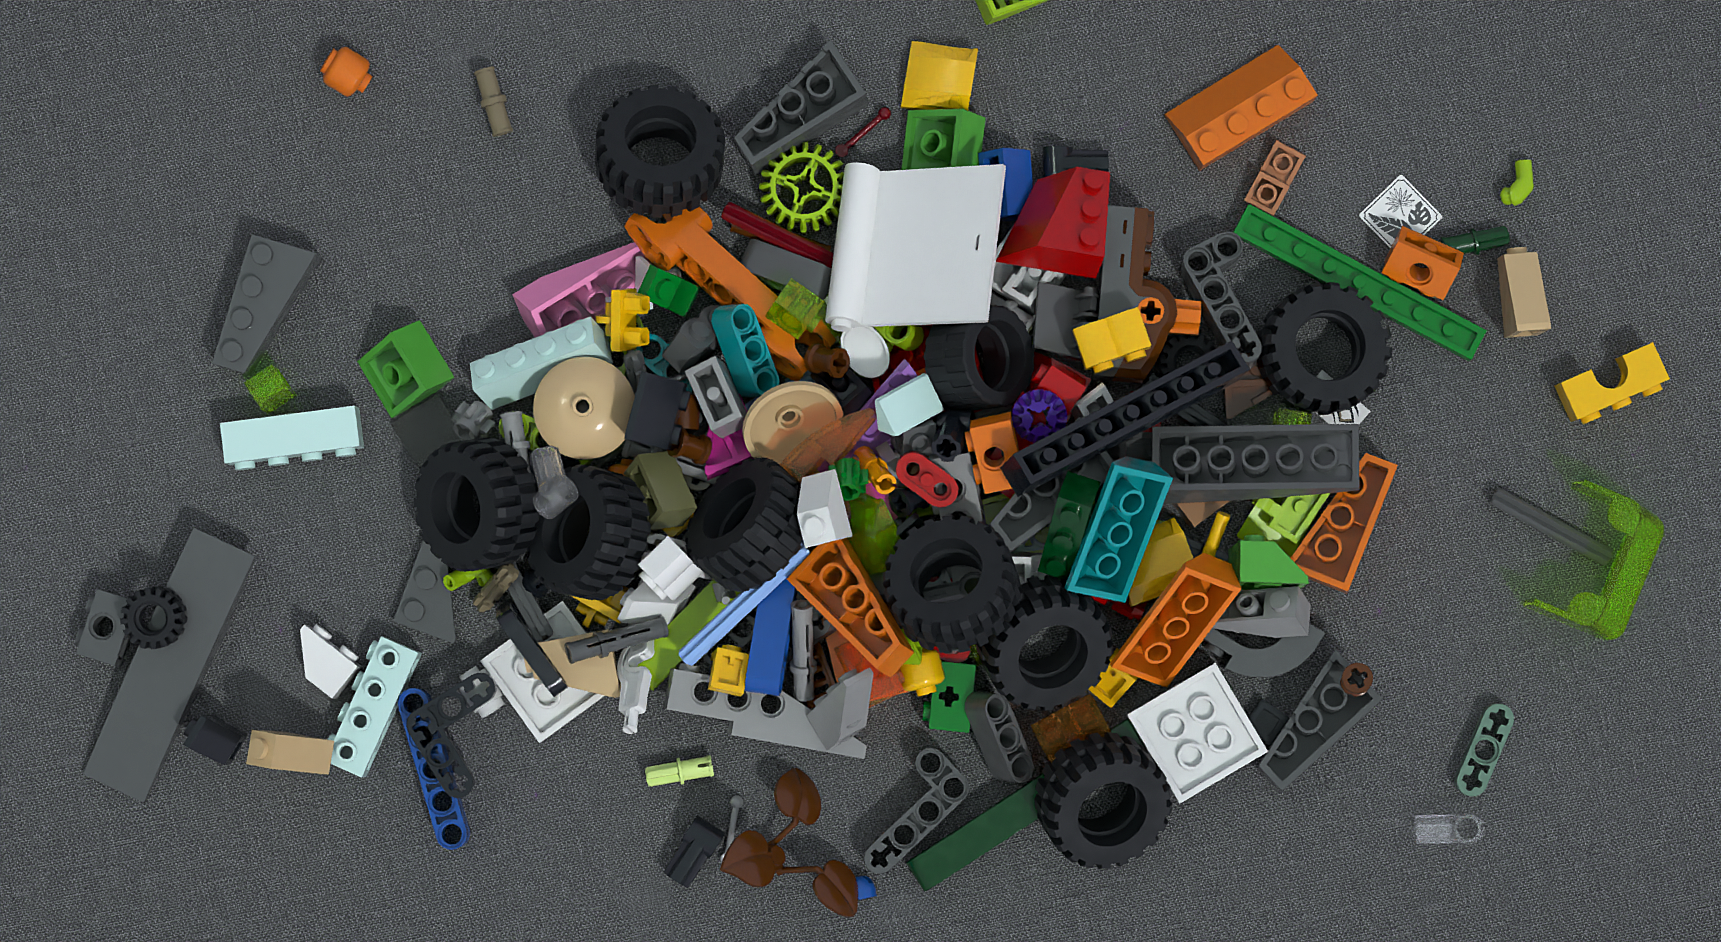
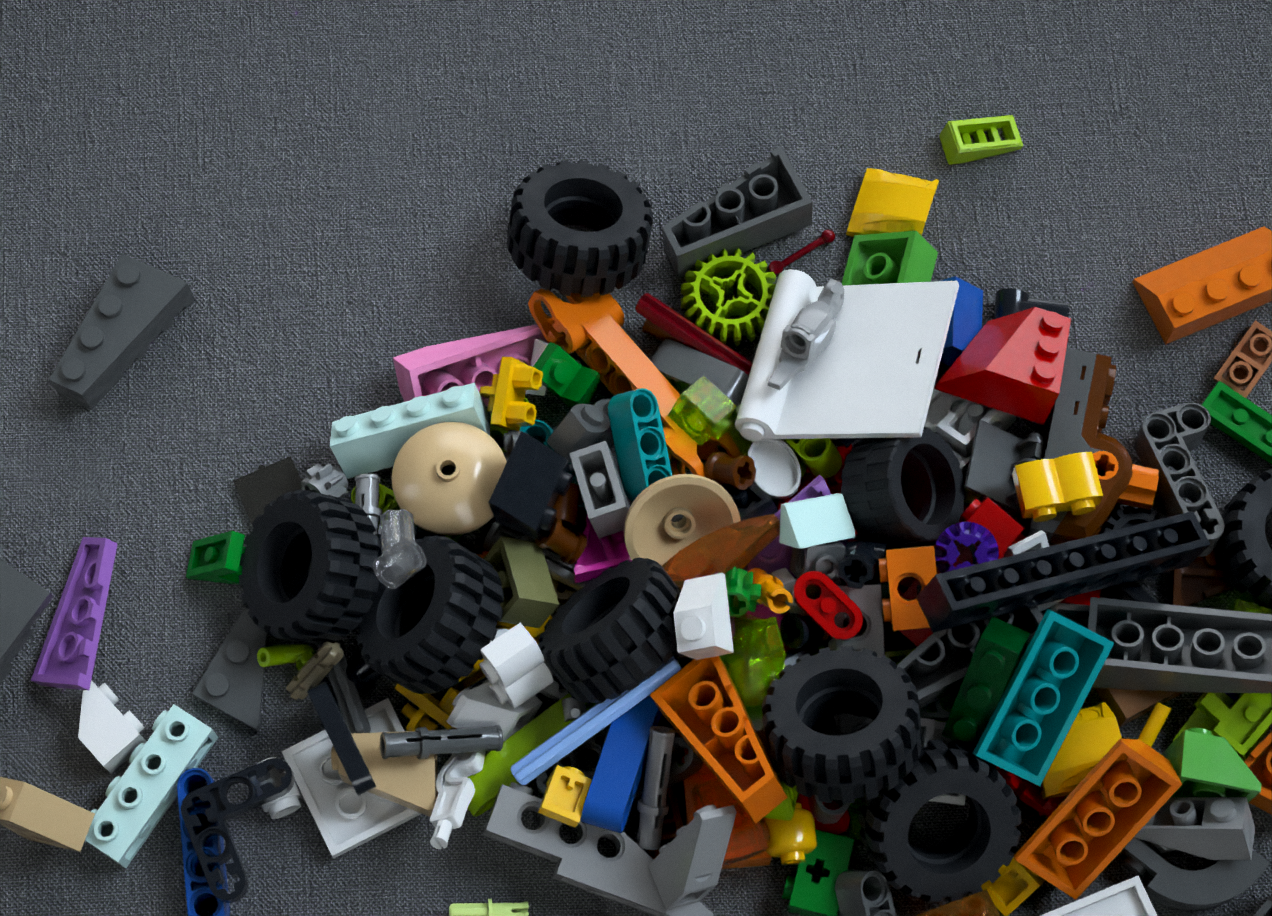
camera: 10 degrees right, 15 degrees down
(270, 389) = (108, 421): clear neon green brick -> none
(281, 581) = (75, 631): none -> medium lavender wing
(291, 436) = (120, 473): light aqua brick -> none
(346, 71) = (258, 112): orange head -> none
(391, 499) = (217, 558): none -> green slope
(405, 368) = (261, 421): bright green slope -> none
(493, 101) = (409, 165): dark tan pin -> none
(878, 229) = (808, 334): none -> light grey animal

